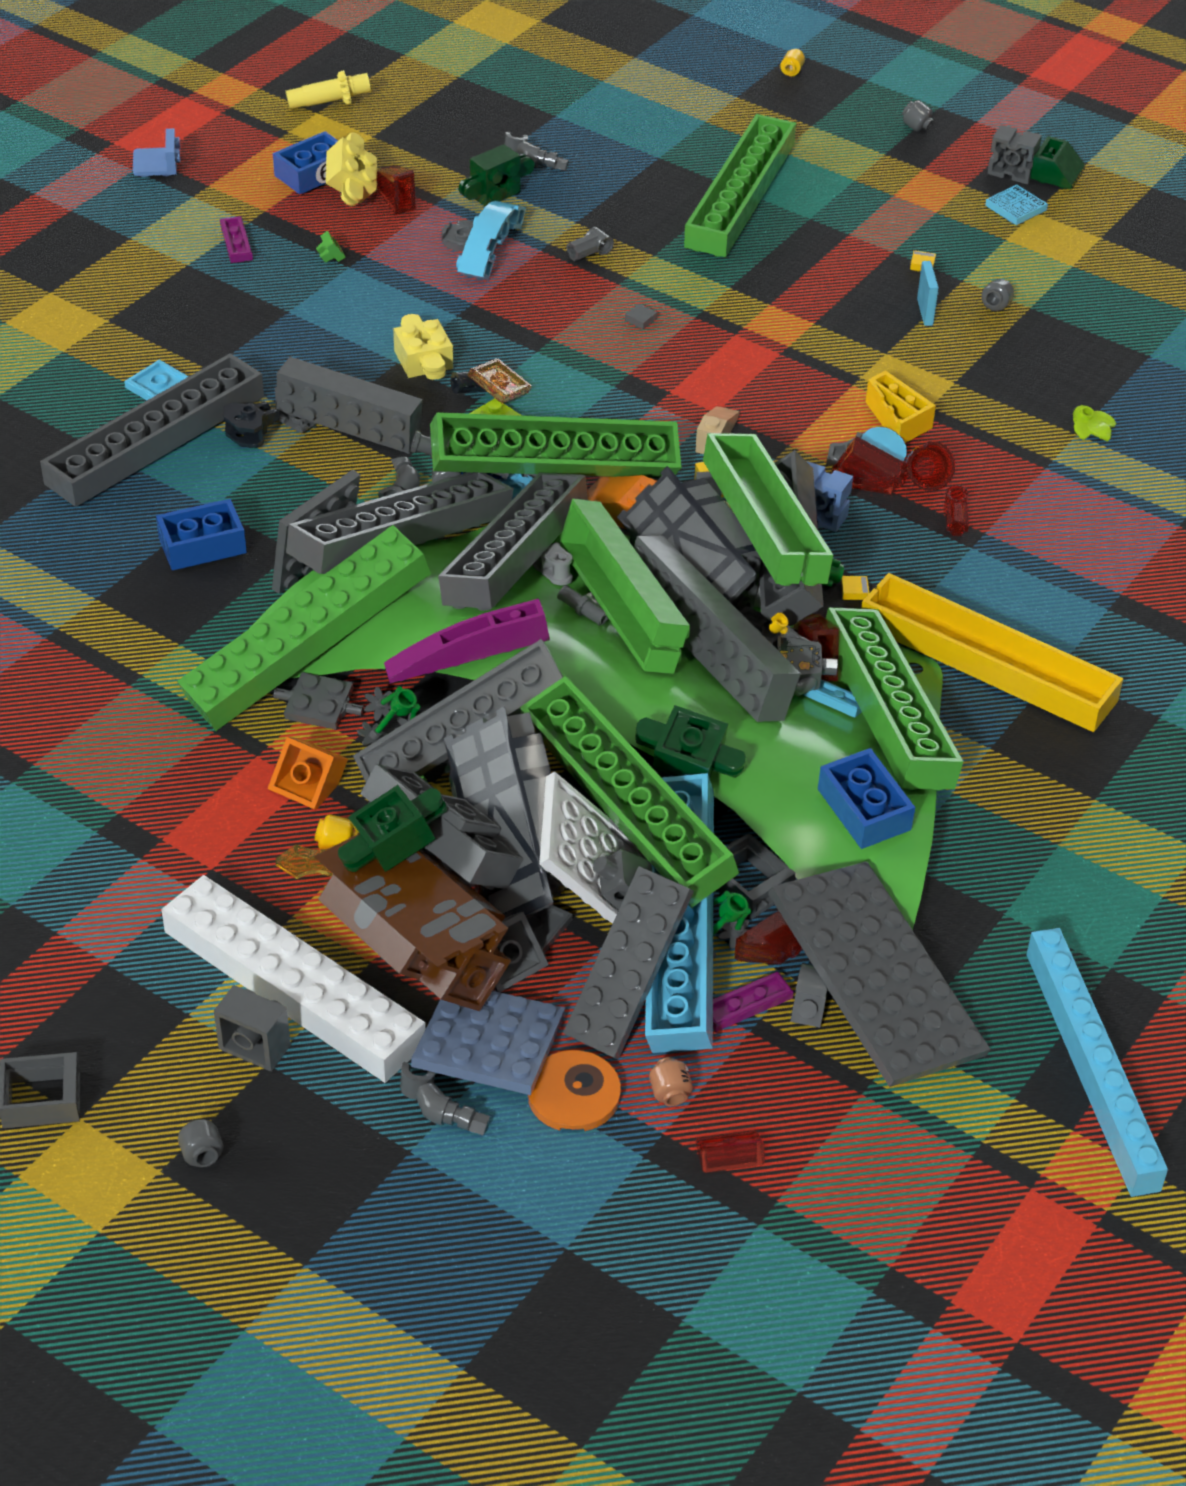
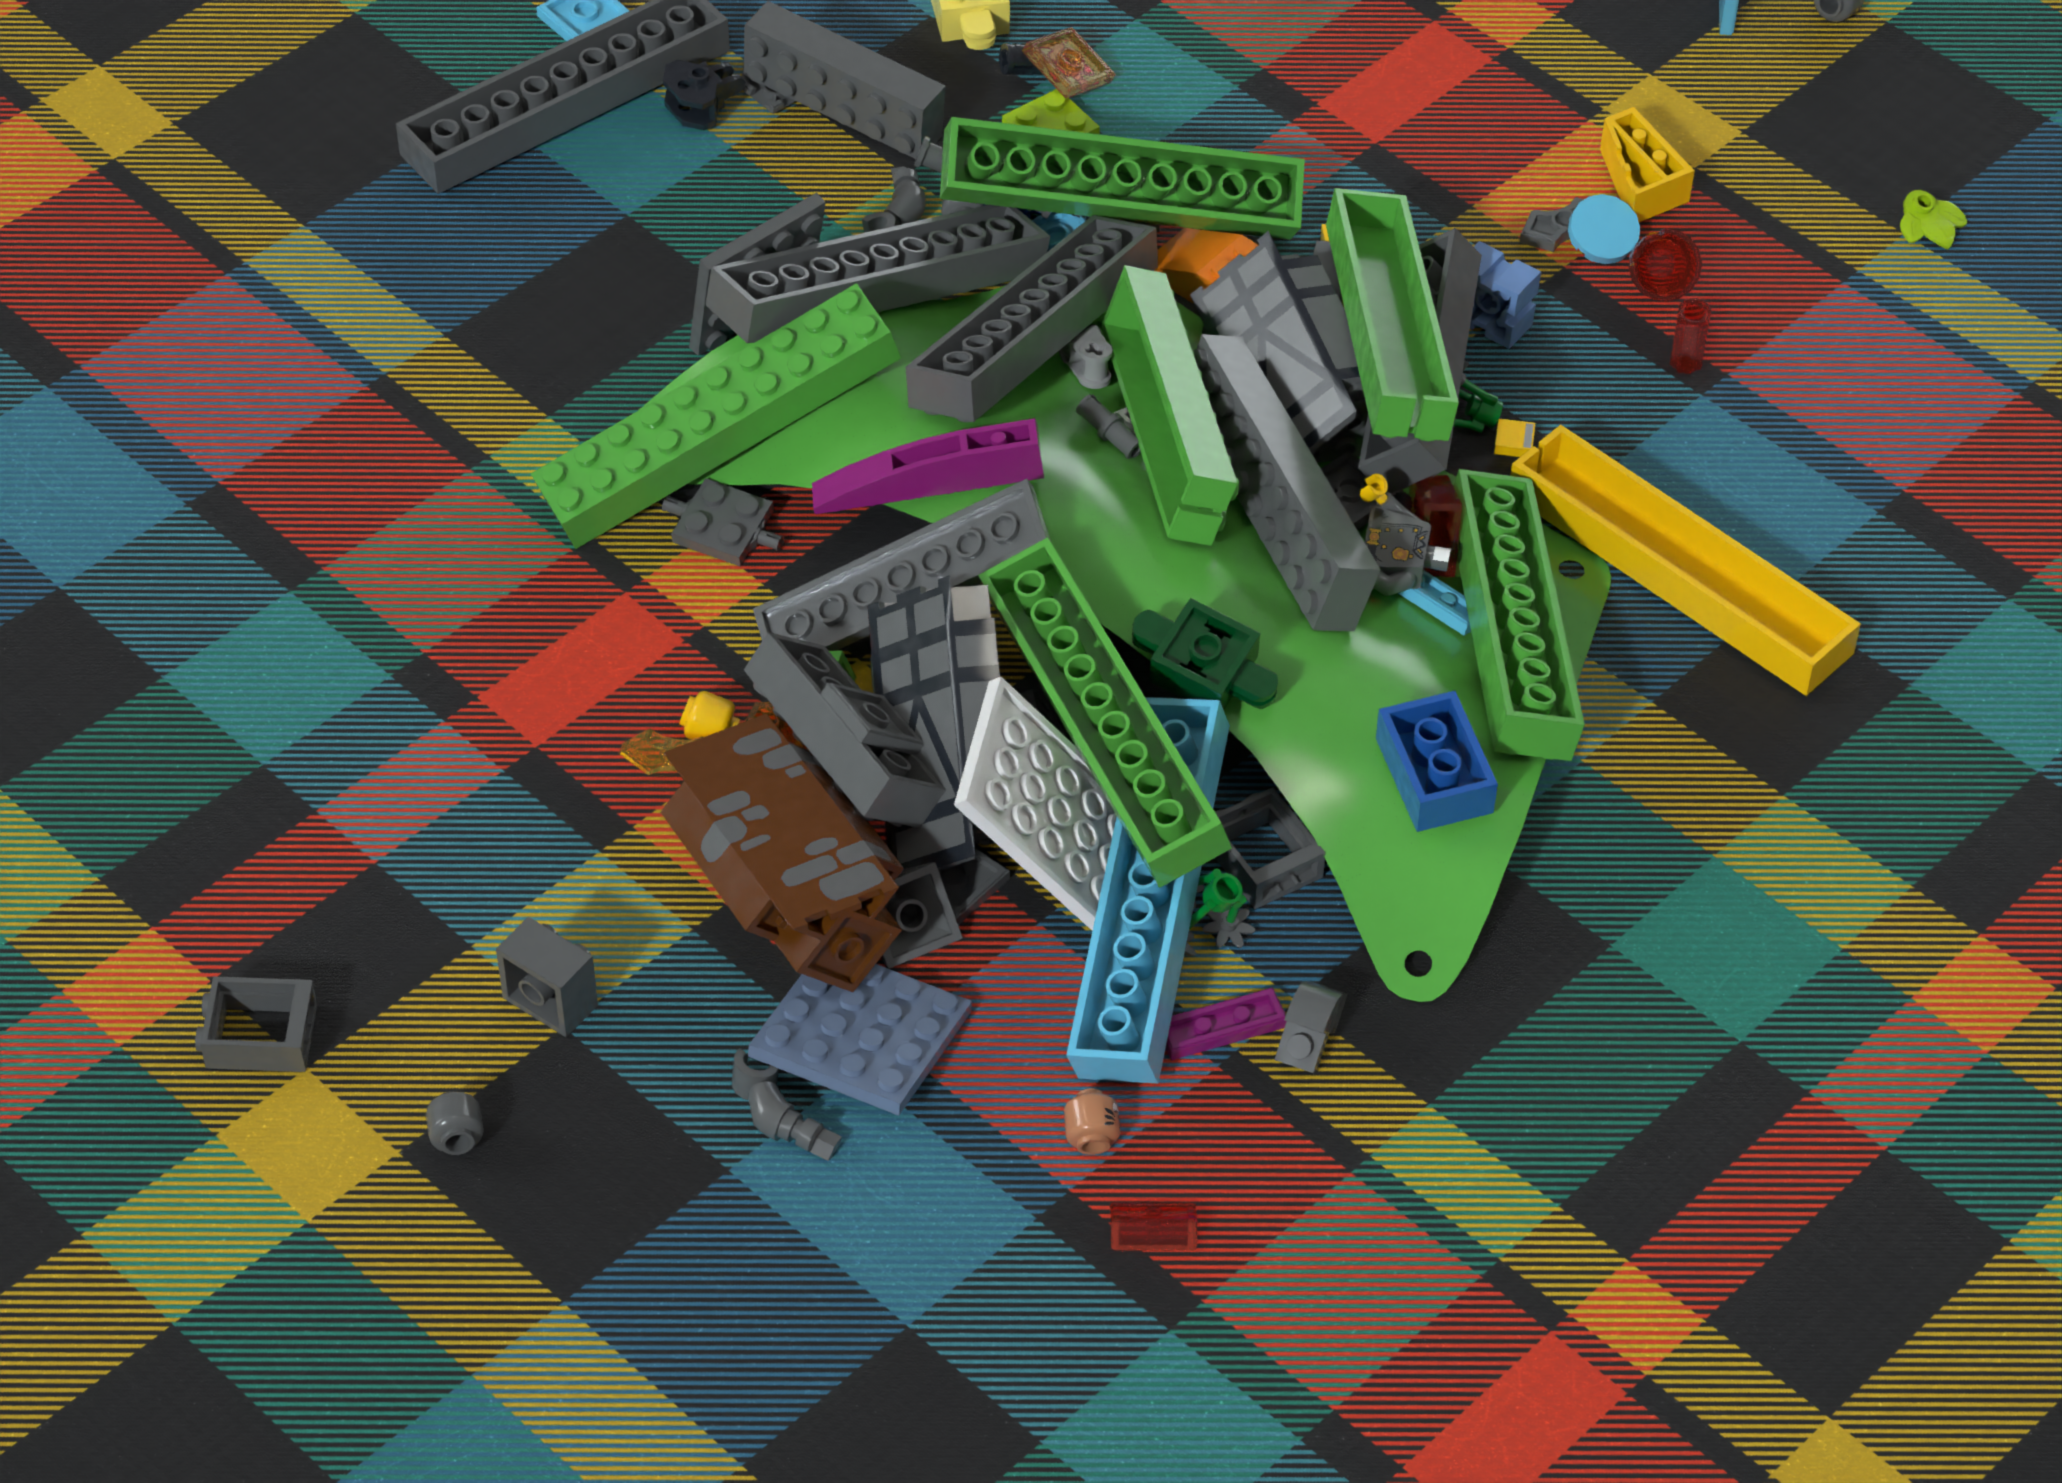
camera: 10 degrees right, 5 degrees up
(201, 534) = (602, 256): blue brick -> none
(288, 970) = (615, 913): white brick -> none
(306, 772) = (686, 625): orange slope -> none
(391, 828) = (769, 728): dark green brick -> none
(402, 703) = (820, 541): plant -> none
(575, 1091) = (962, 1117): orange tile -> none
(617, 874) = (1078, 841): dark grey torso -> none
(628, 962) = (1060, 951): dark grey plate -> none
(715, 421) = (1371, 164): tan slope -> none
(767, 942) = (1271, 944): clear red slope -> none
(871, 467) = (1577, 257): clear red slope -> none
(879, 973) = (1405, 1008): dark grey plate -> none
(1097, 1063) = (1680, 1170): medium azure brick -> none

